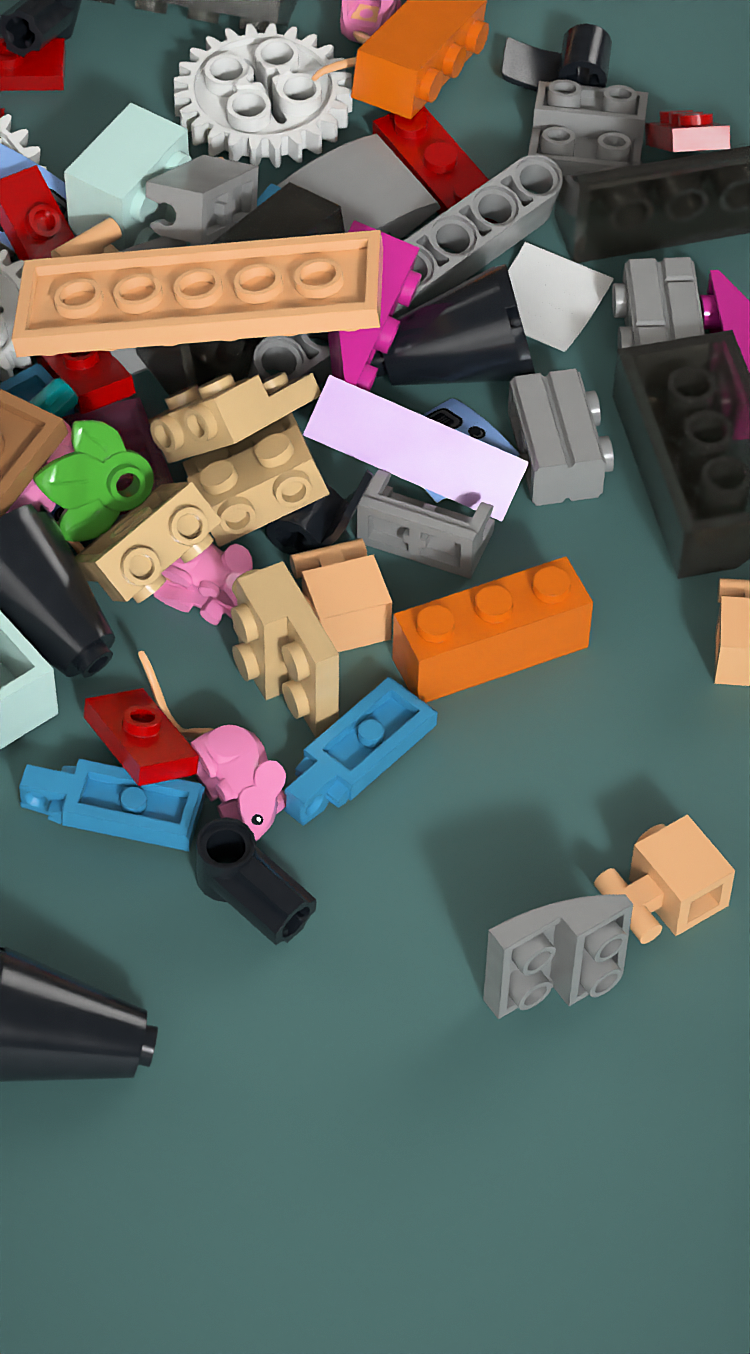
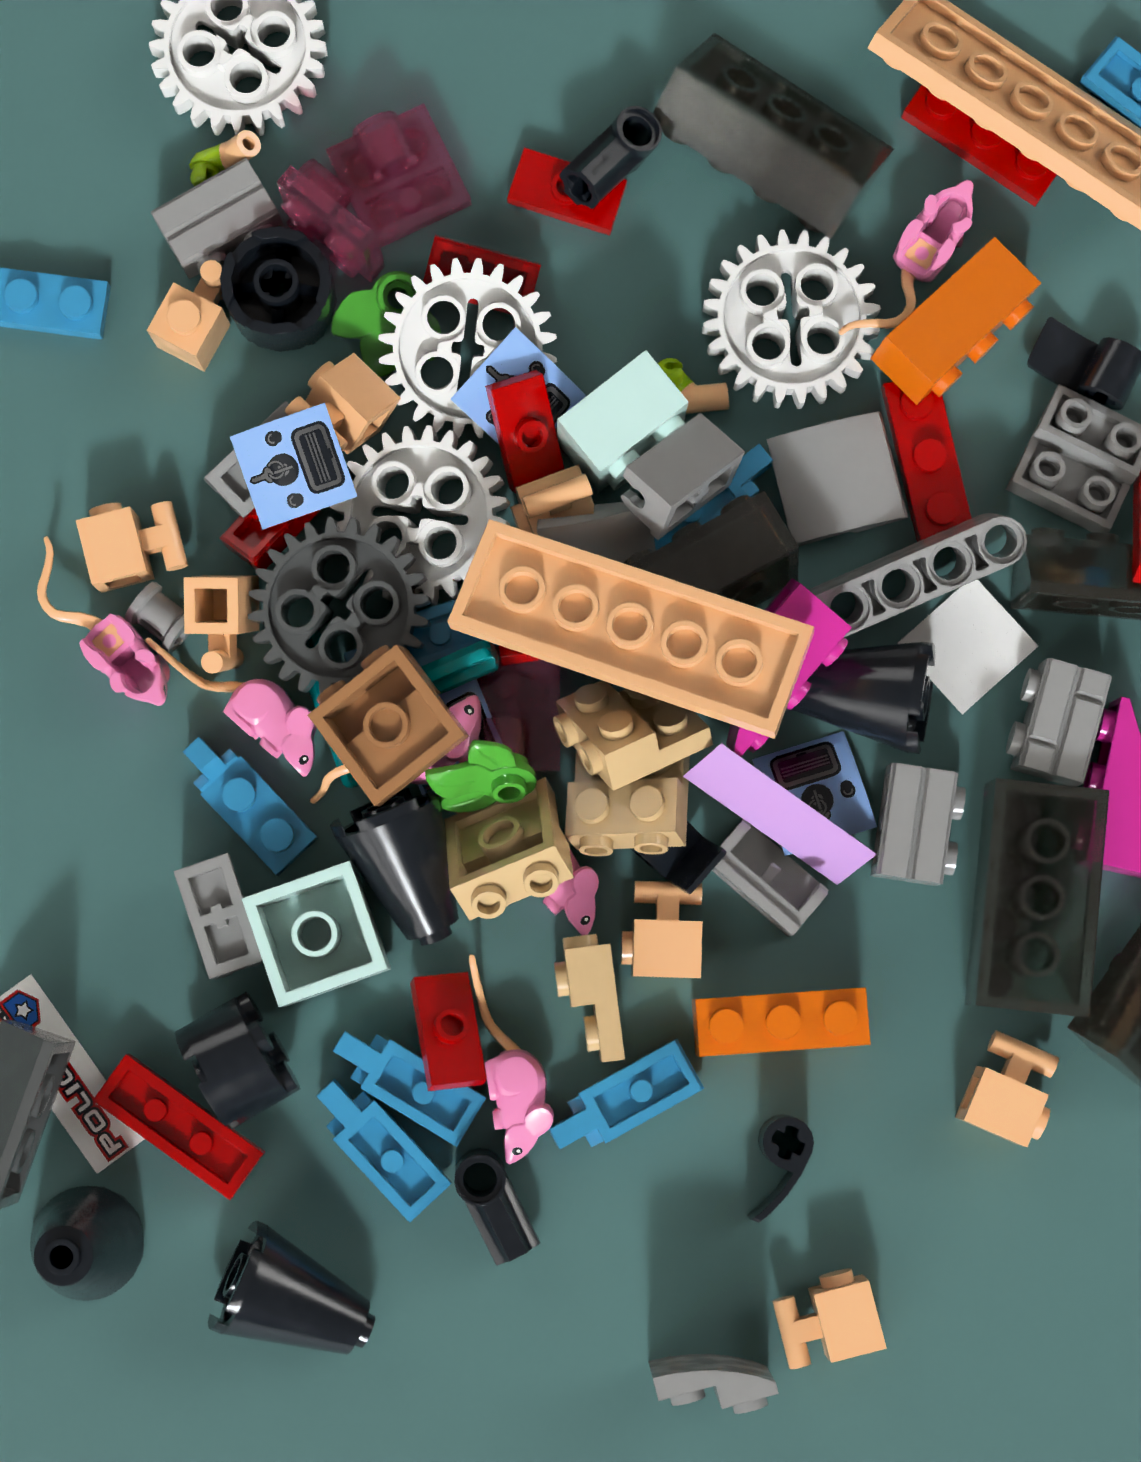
camera: 15 degrees right, 30 degrees up
(107, 870) = (383, 1150): none -> dark azure hinge
(545, 749) = (792, 1161): none -> black panel

